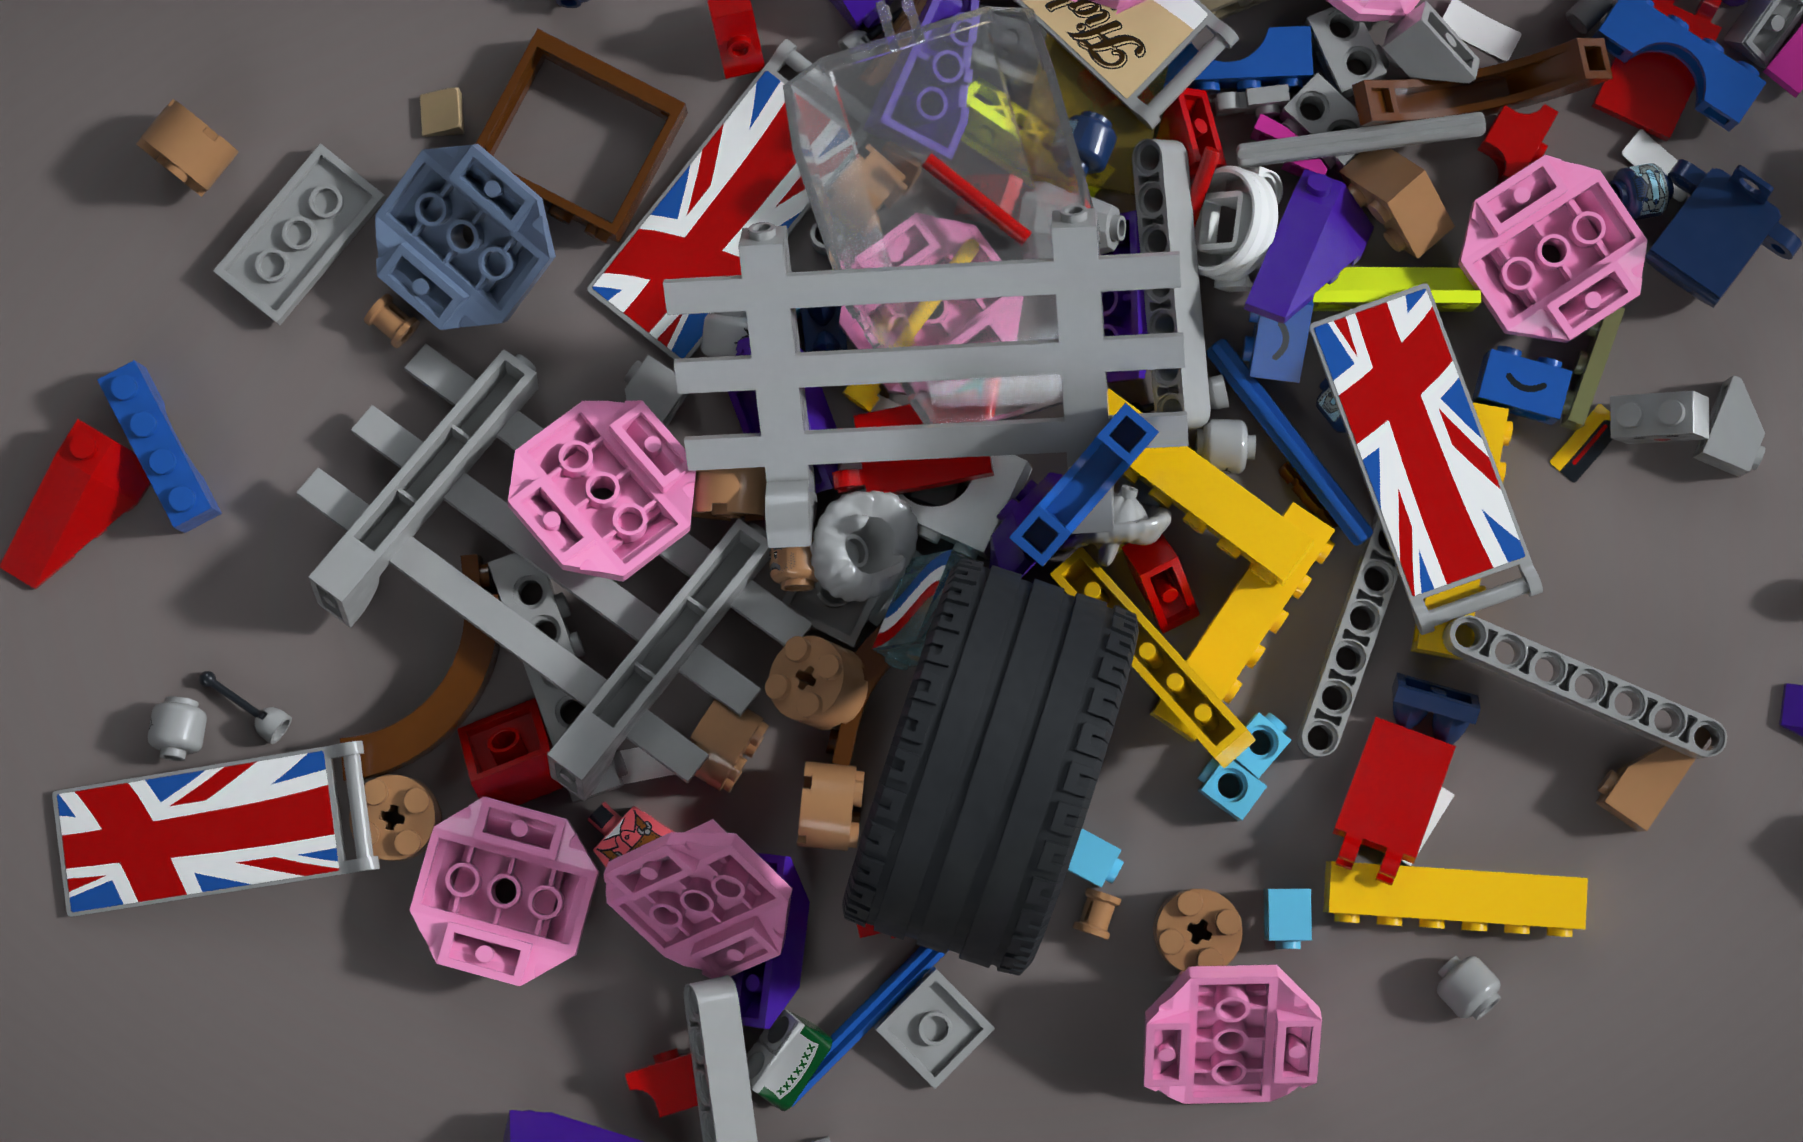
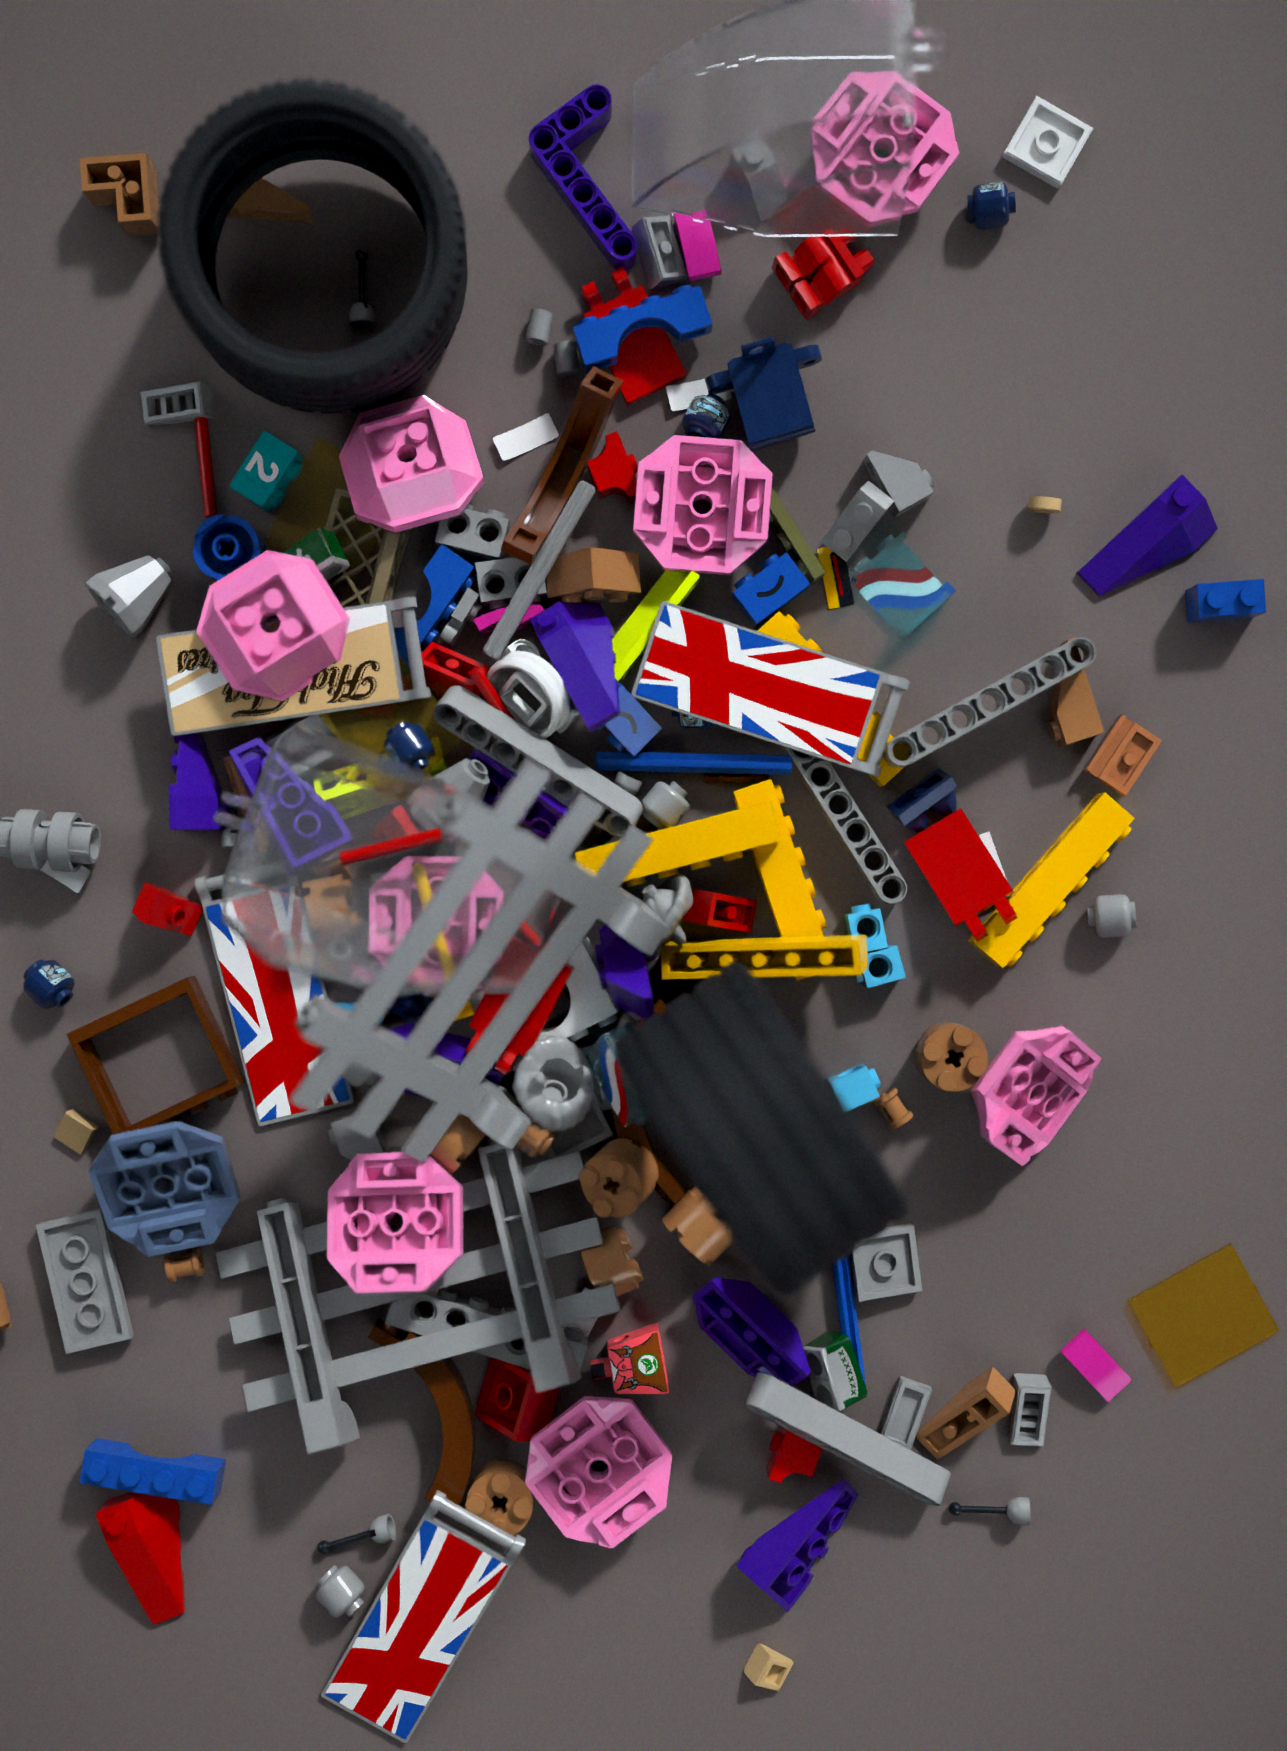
camera: 55 degrees left, 5 degrees up
(702, 899) = (700, 1355): bright pink piece -> none
(1084, 484) = (628, 928): blue arch -> none
(1287, 917) = (984, 993): medium azure brick -> none
(1429, 48) = (514, 480): light grey slope -> none
(1629, 513) = (899, 586): none -> clear light blue panel
(1638, 871) = (1122, 755): none -> nougat plate

